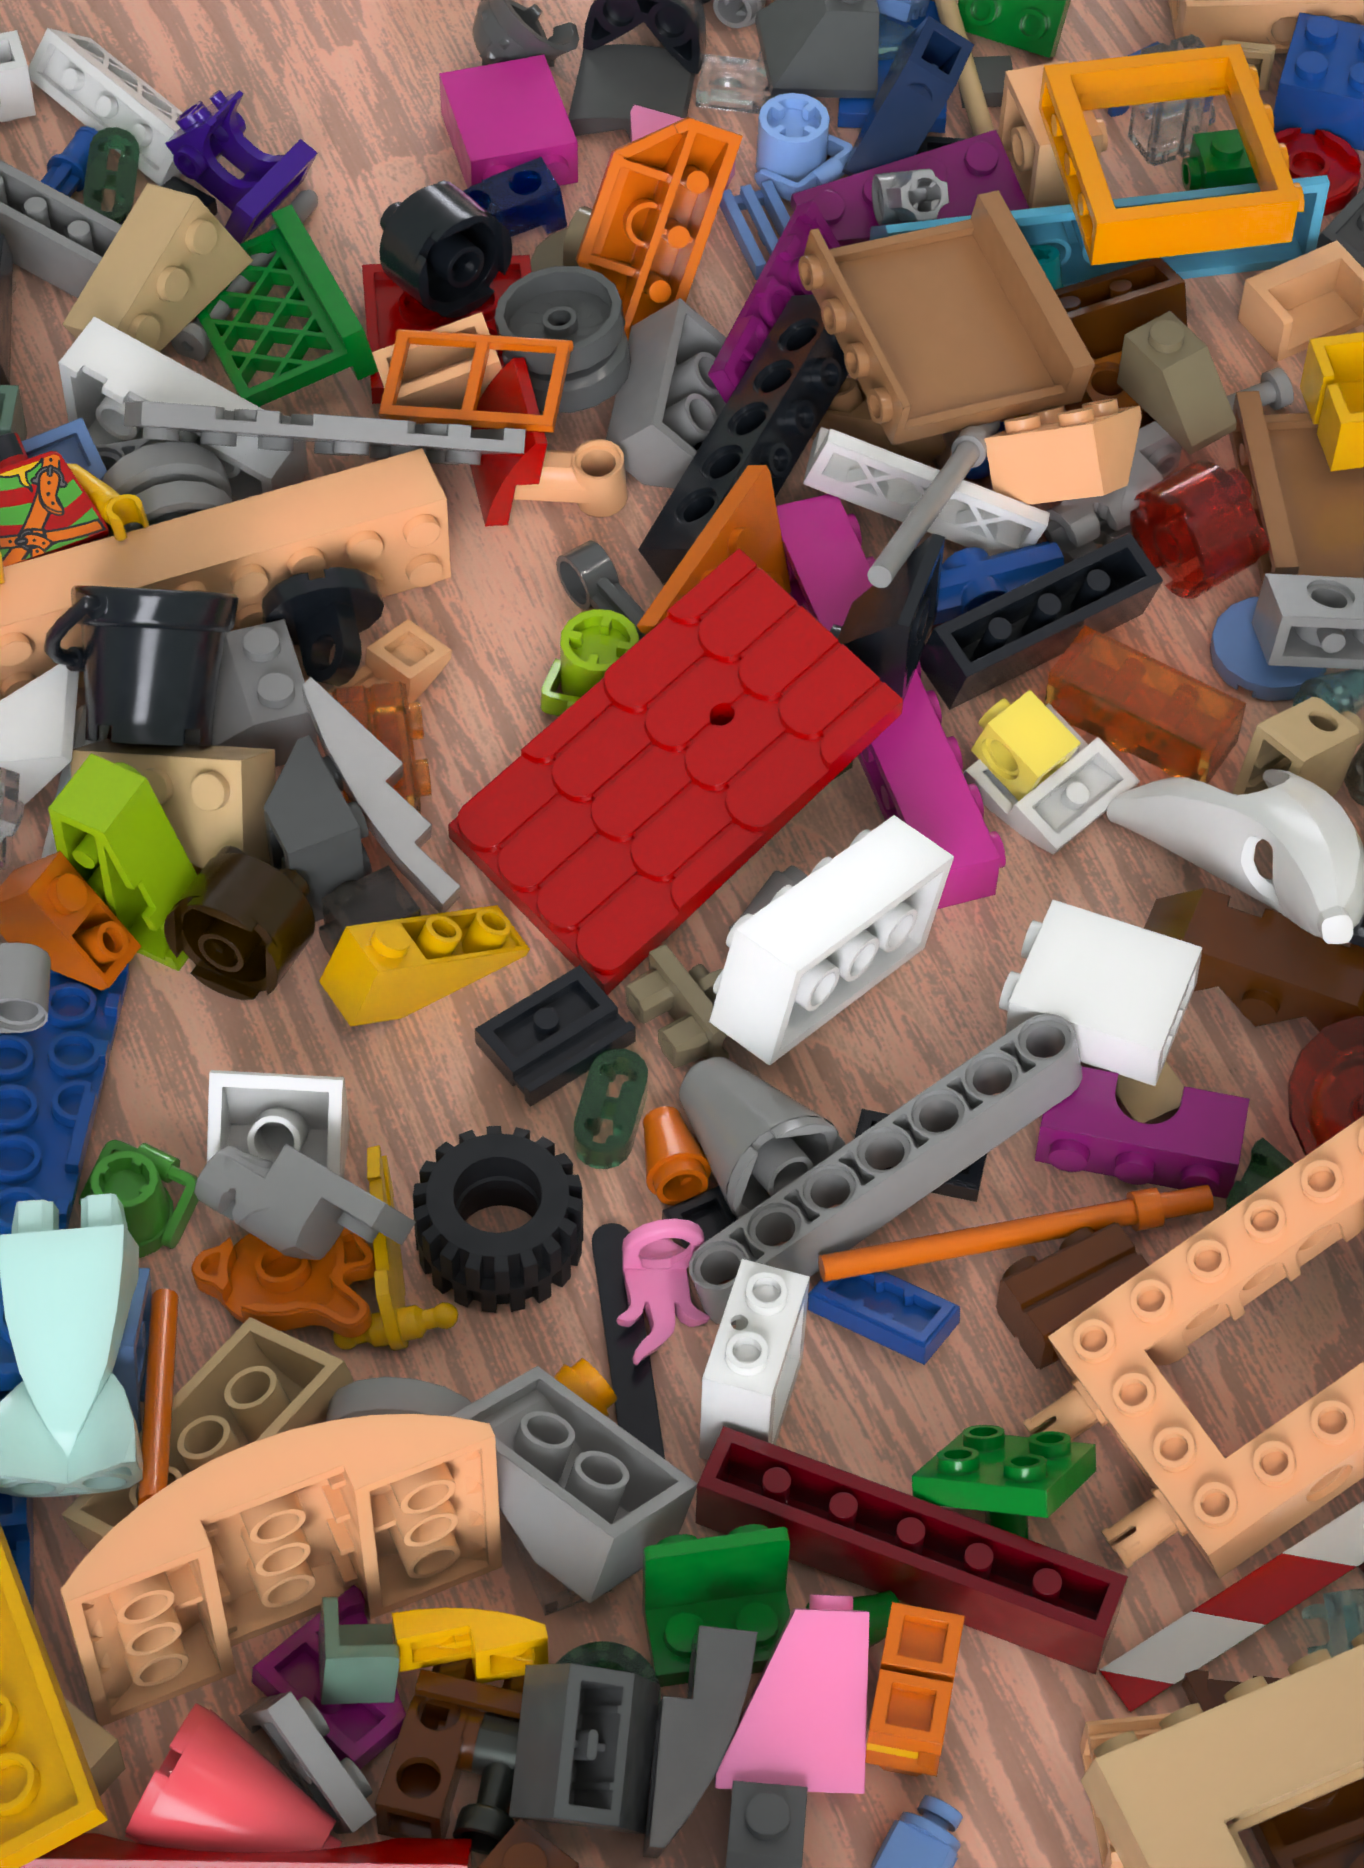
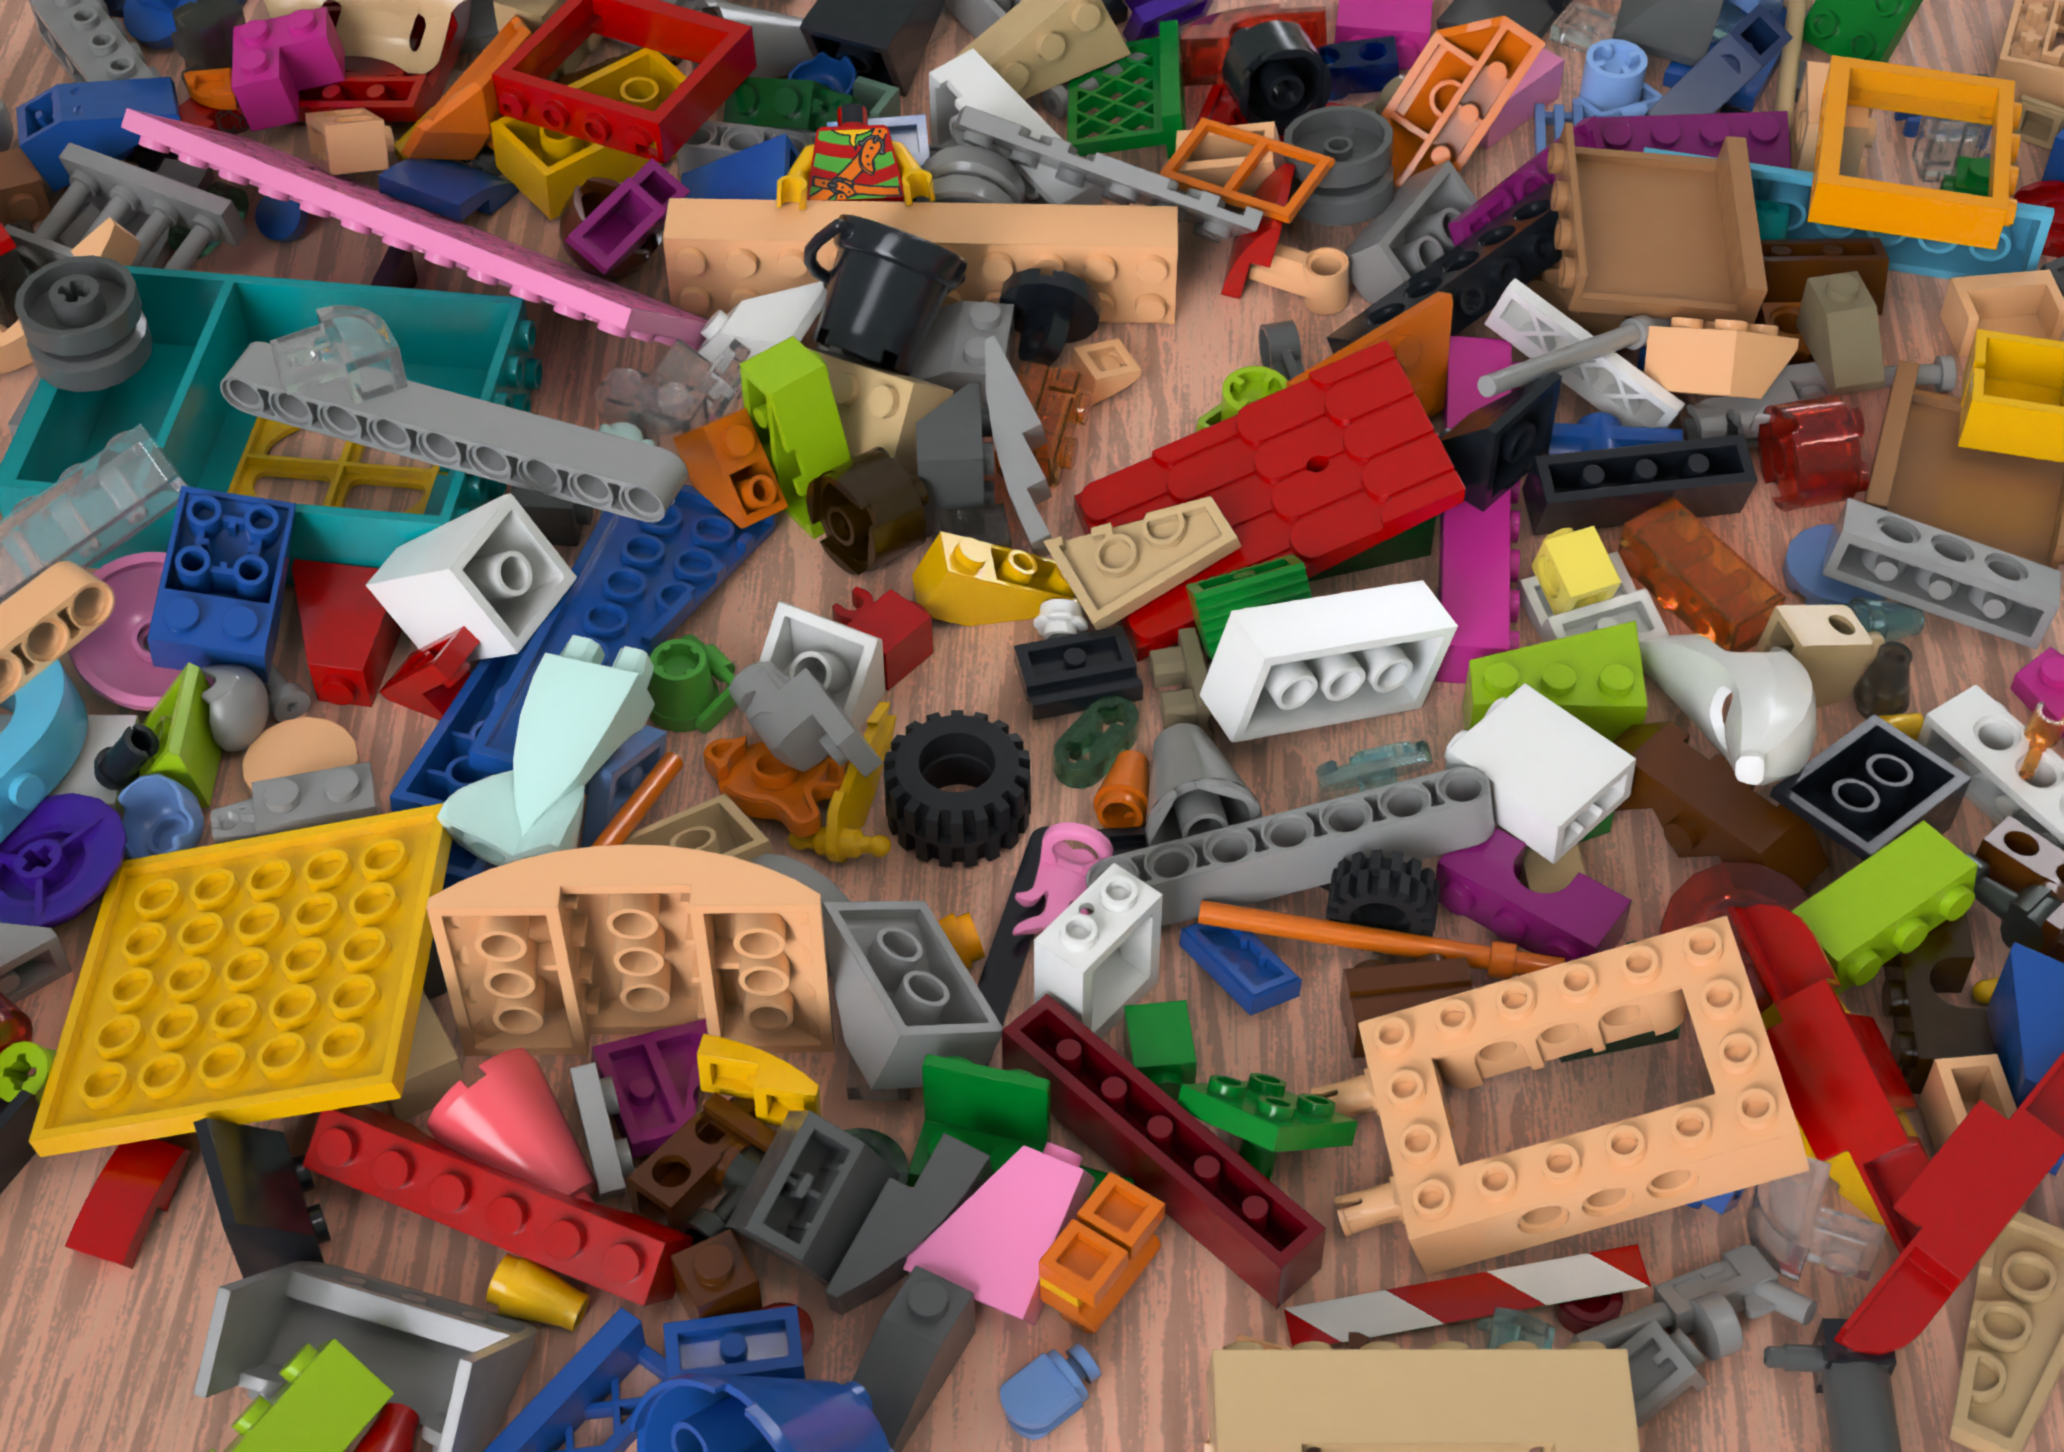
camera: 25 degrees right, 5 degrees down
(328, 1048) = (898, 622): none -> red brick
(351, 207) = (1208, 39): none -> clear red arch
(355, 1660) = (663, 1066): sand green panel -> none
(507, 980) = (1060, 619): none -> white plate
(572, 885) = (1139, 561): none -> tan wing
(712, 895) = (1252, 586): none -> green brick
(852, 1433) = (1161, 1044): none -> green brick
(908, 196) = (1683, 133): light grey piece -> none
(928, 1045) = (1374, 767): none -> clear light blue tile
(1004, 1183) = (1384, 893): none -> black tyre
(1086, 860) = (1586, 674): none -> lime wedge

